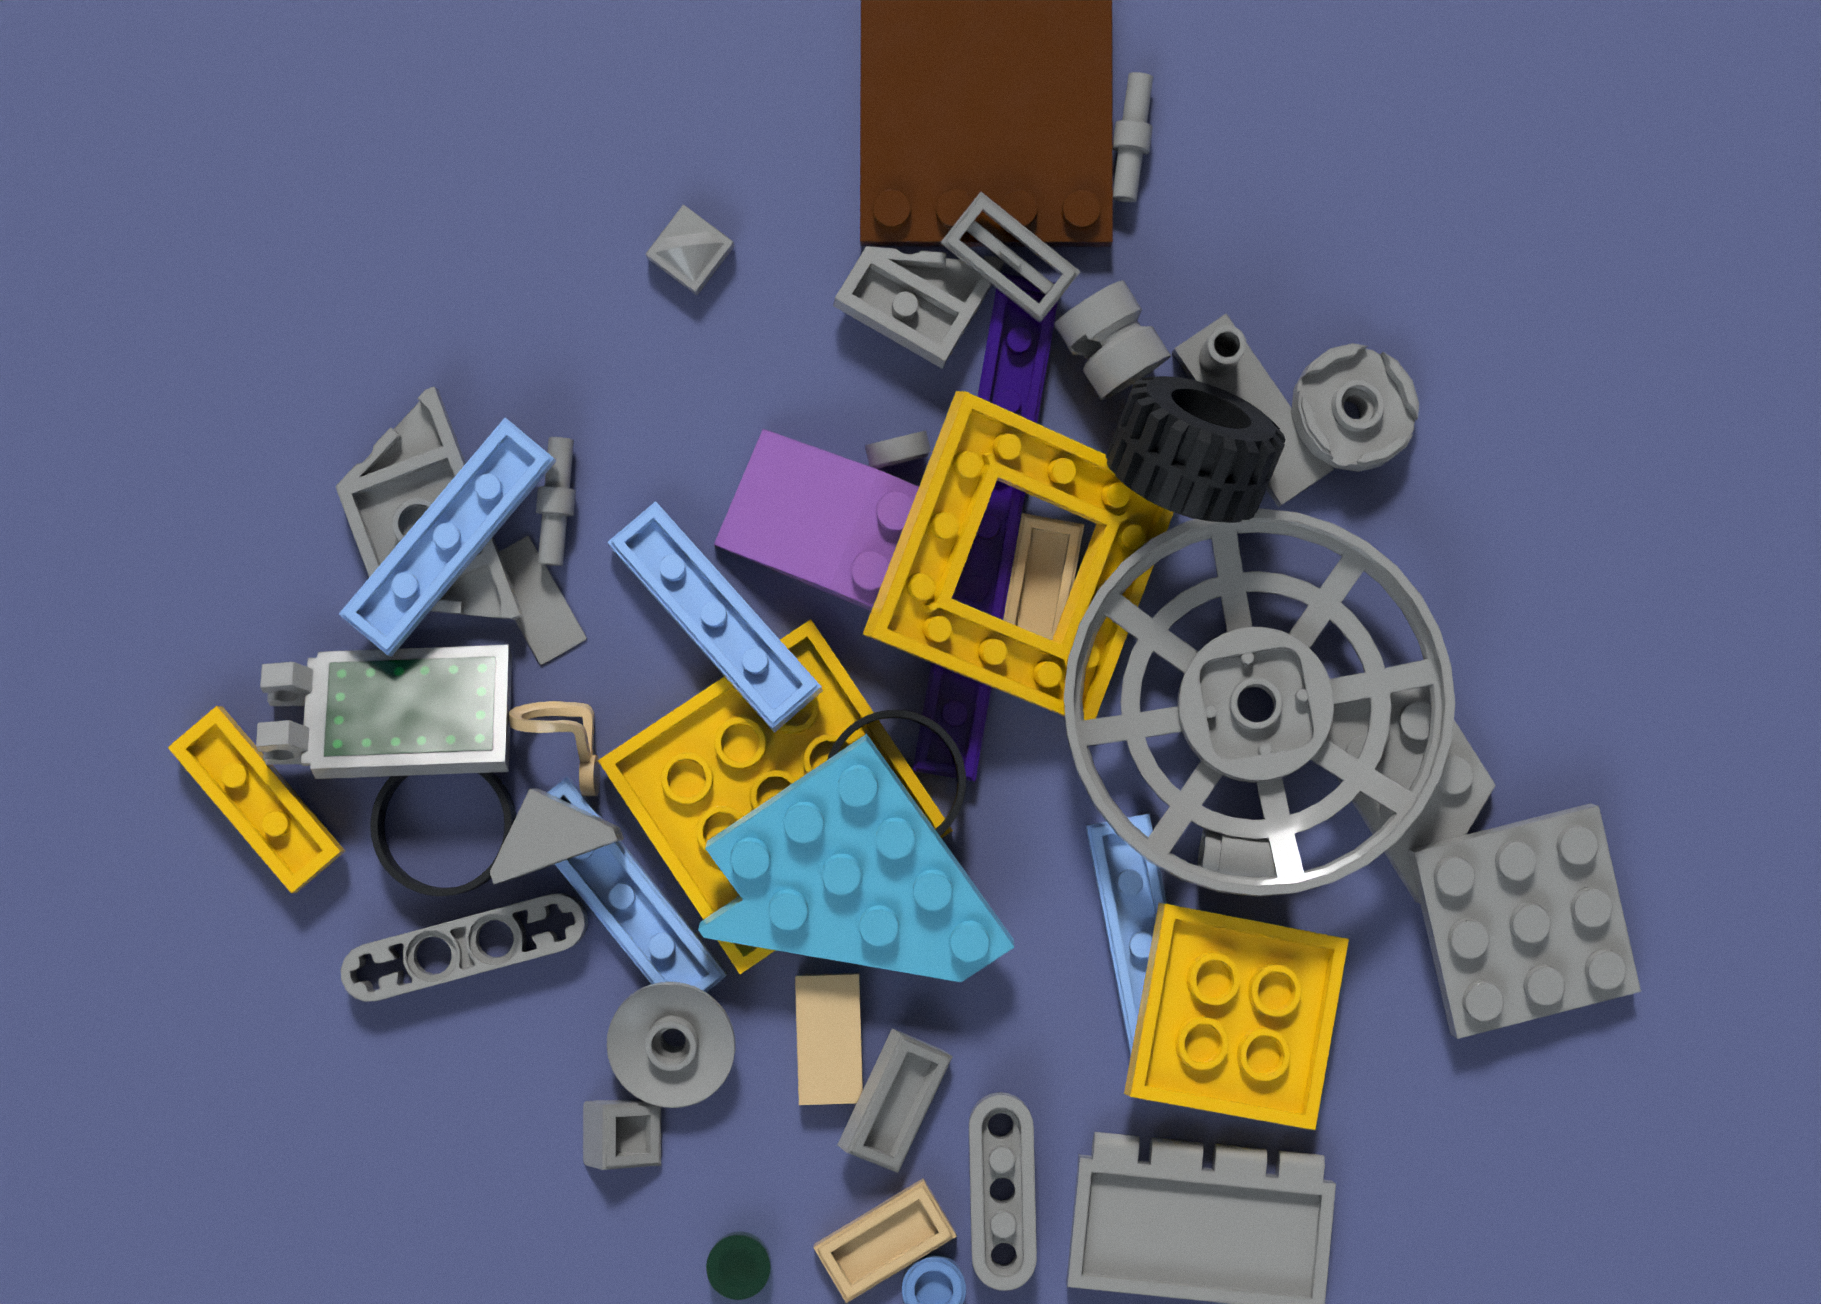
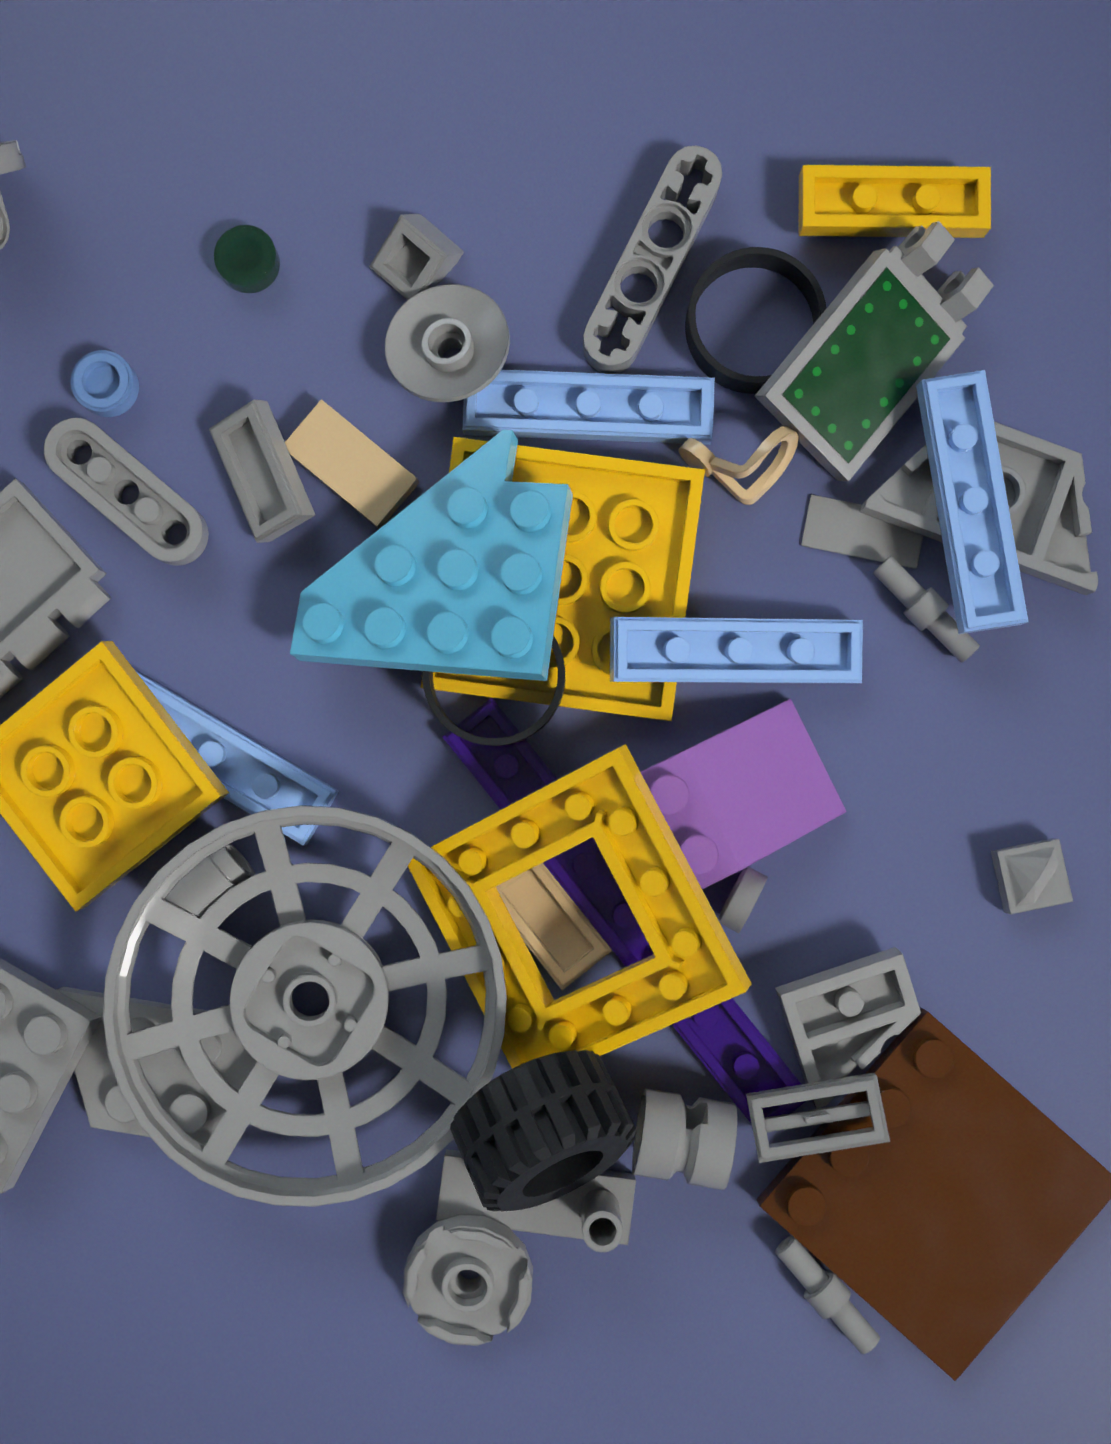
camera: 135 degrees right, 0 degrees up
(547, 834) = (683, 384): light grey slope -> none
(884, 1240) = (170, 378): tan tile -> none

